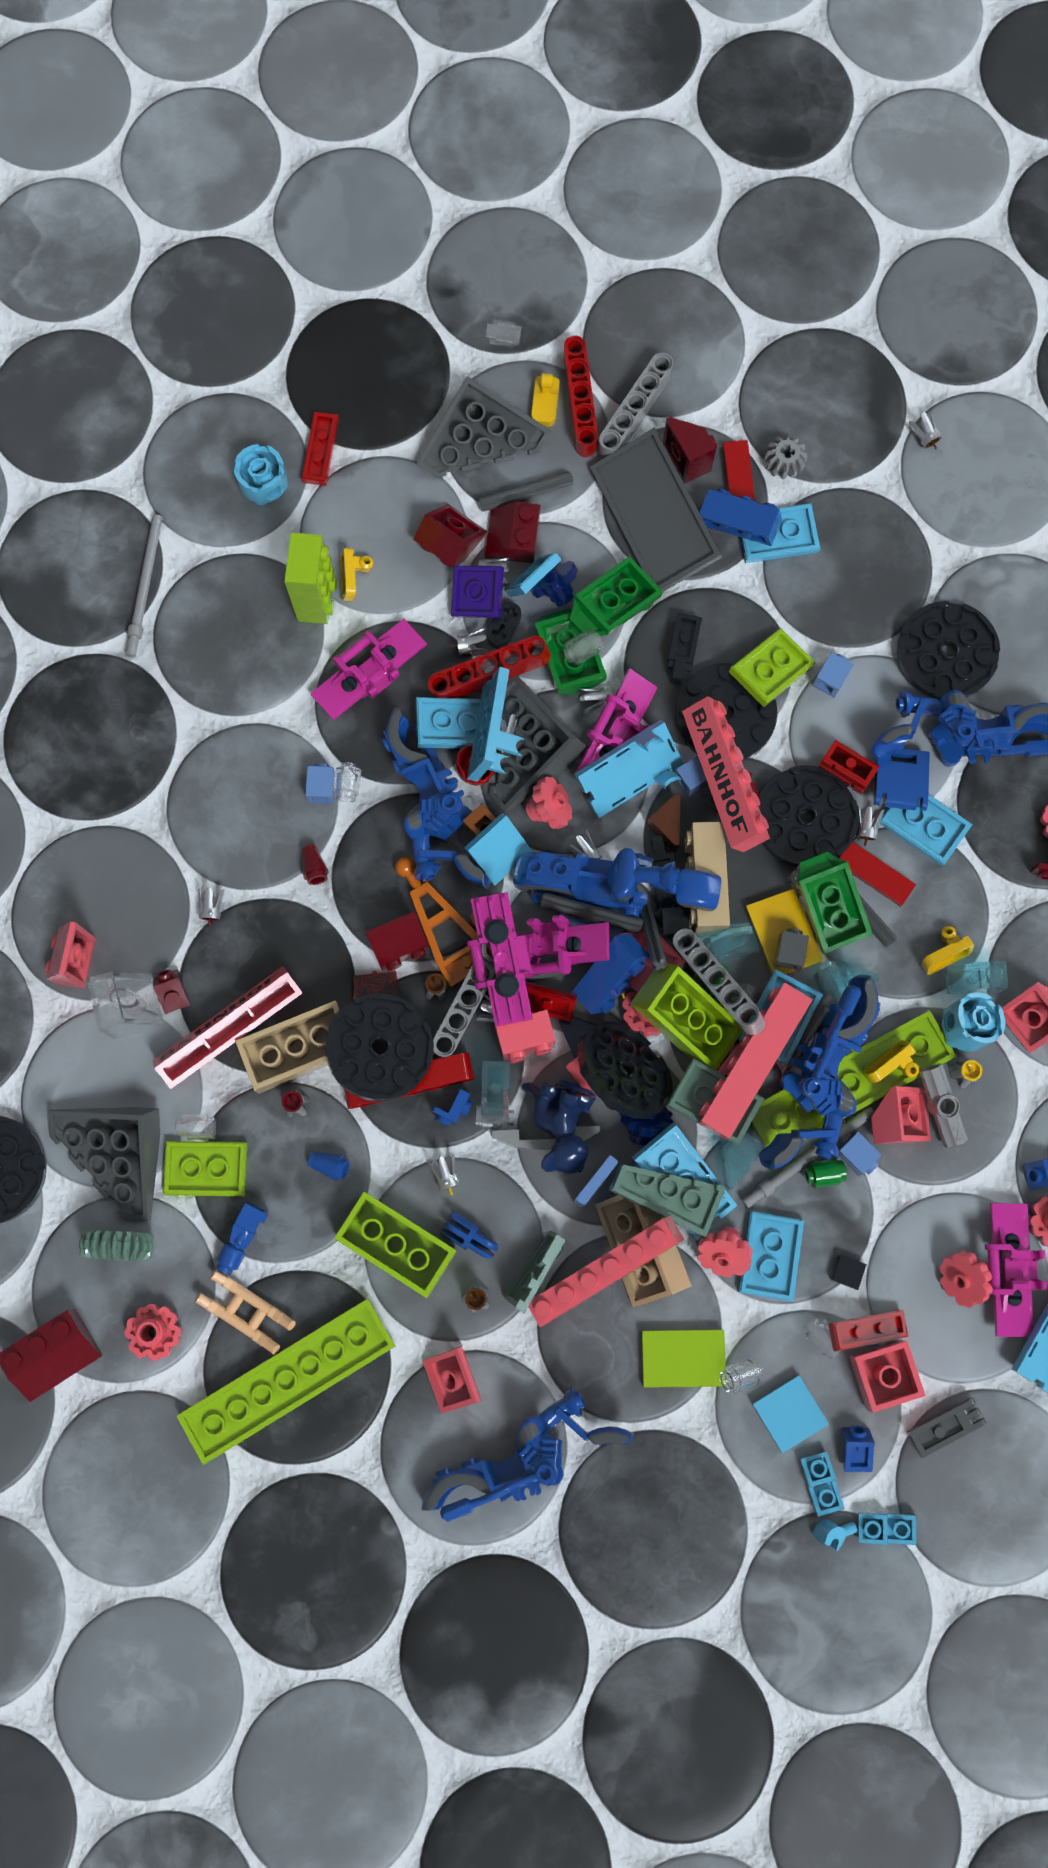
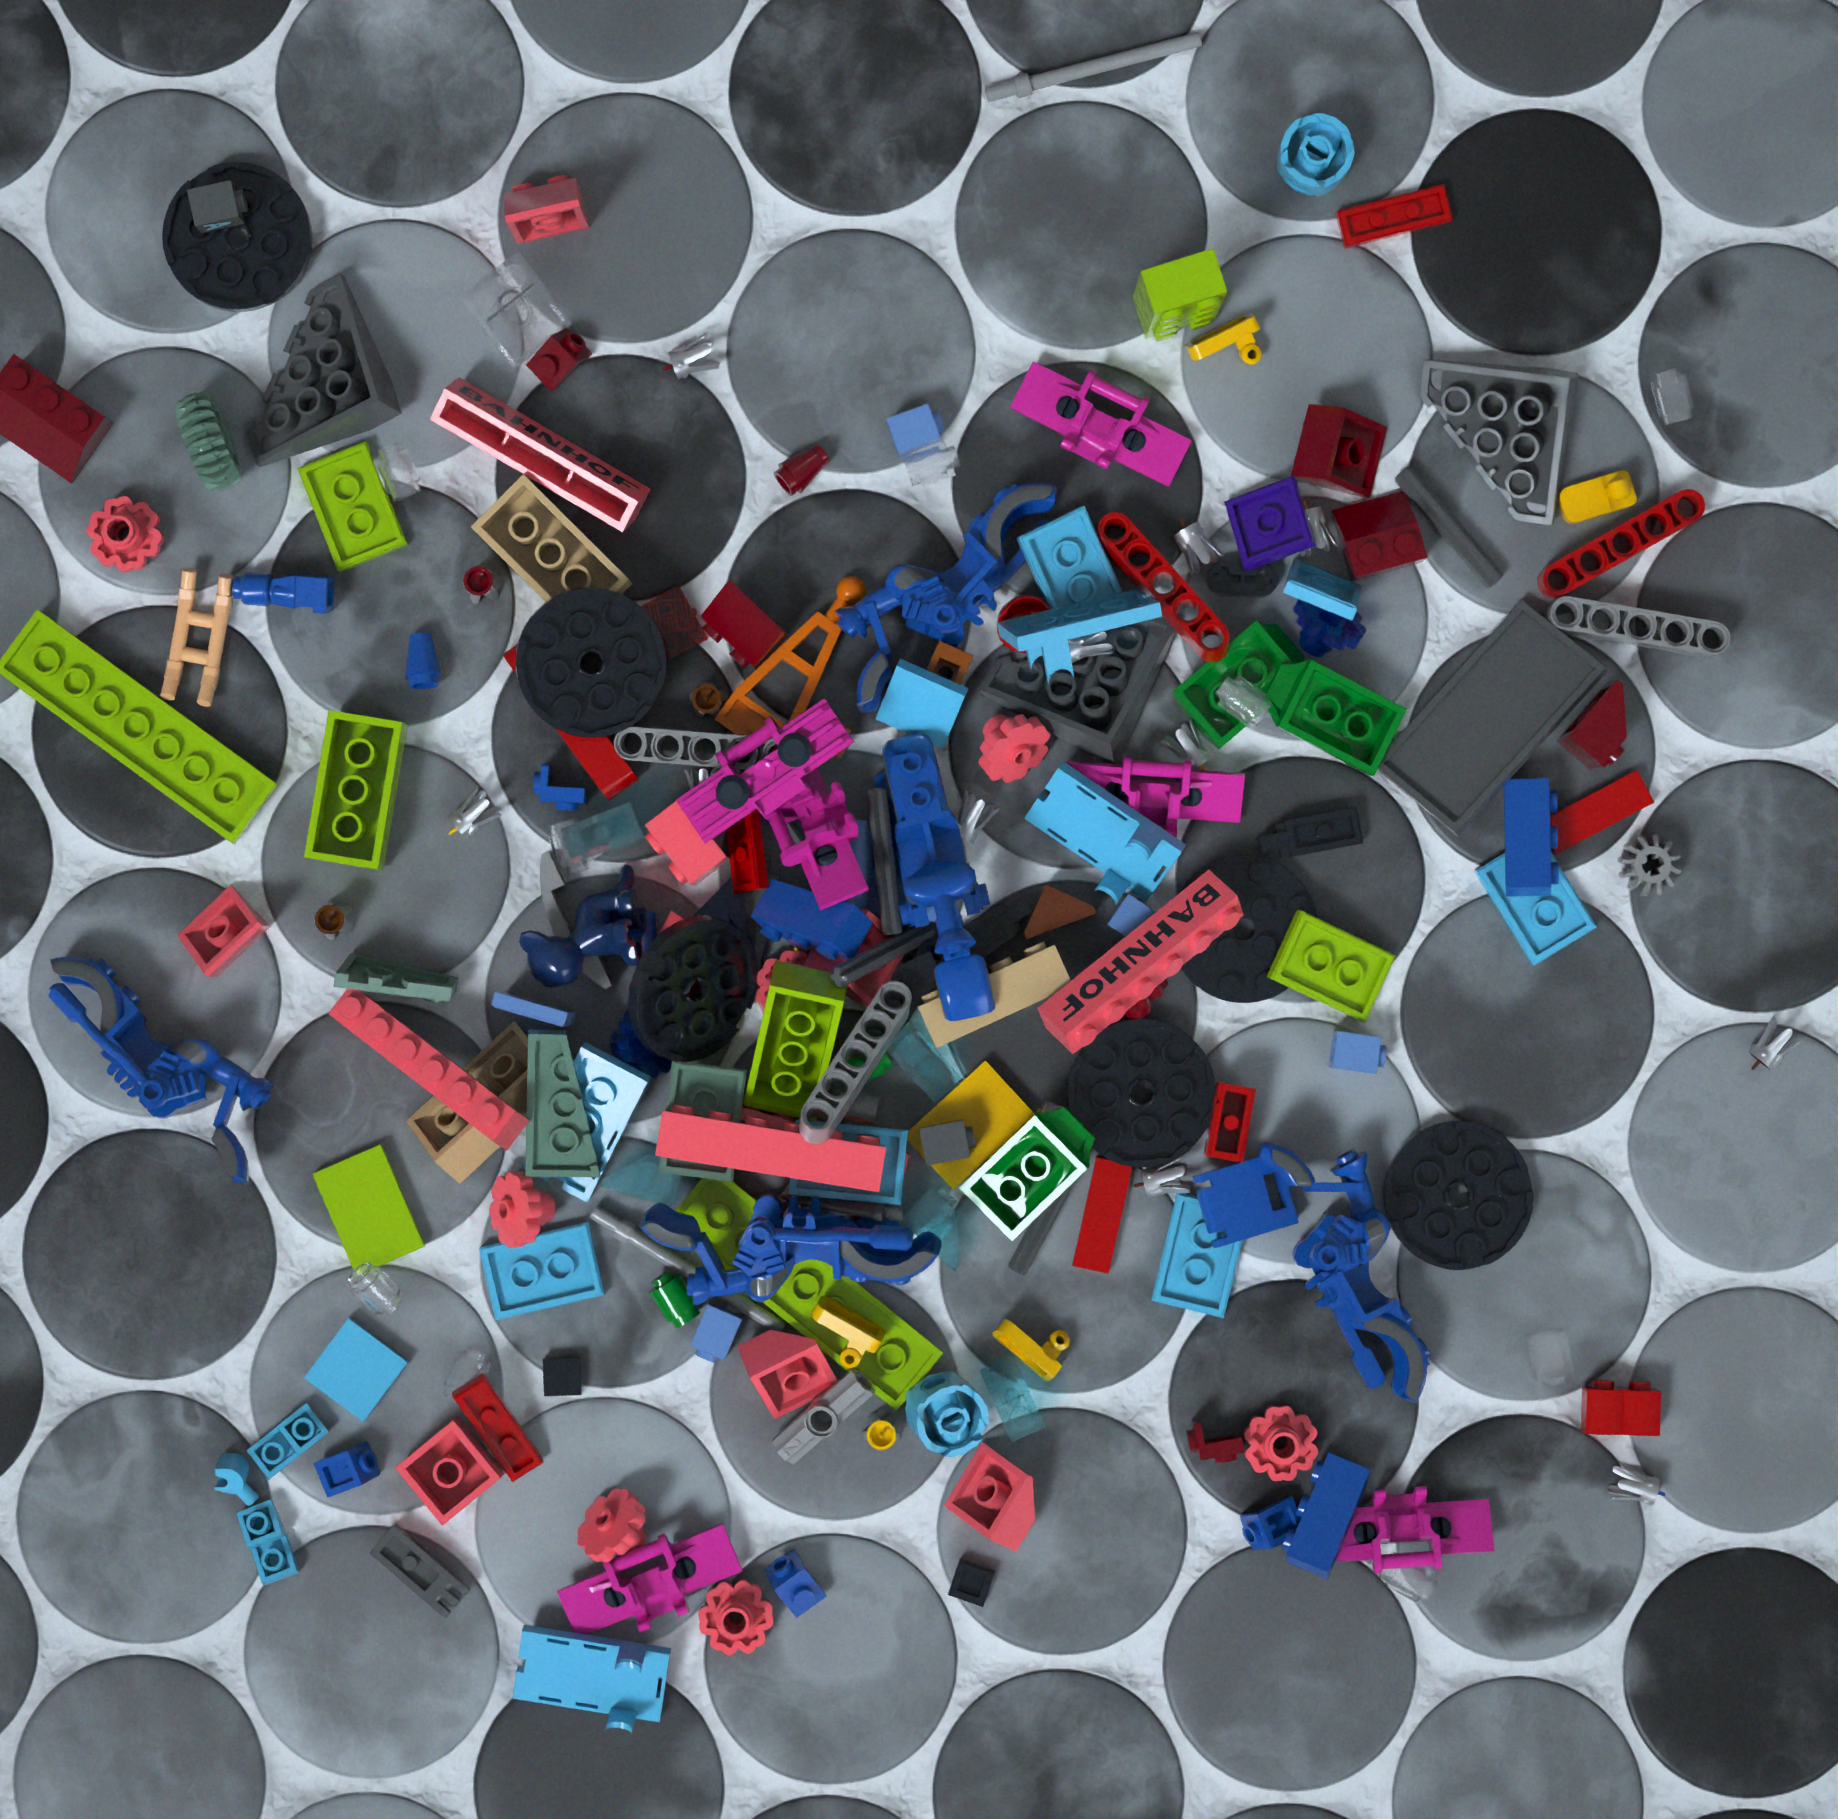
camera: 65 degrees right, 10 degrees up
(468, 1236) = (406, 877): blue arm -> none

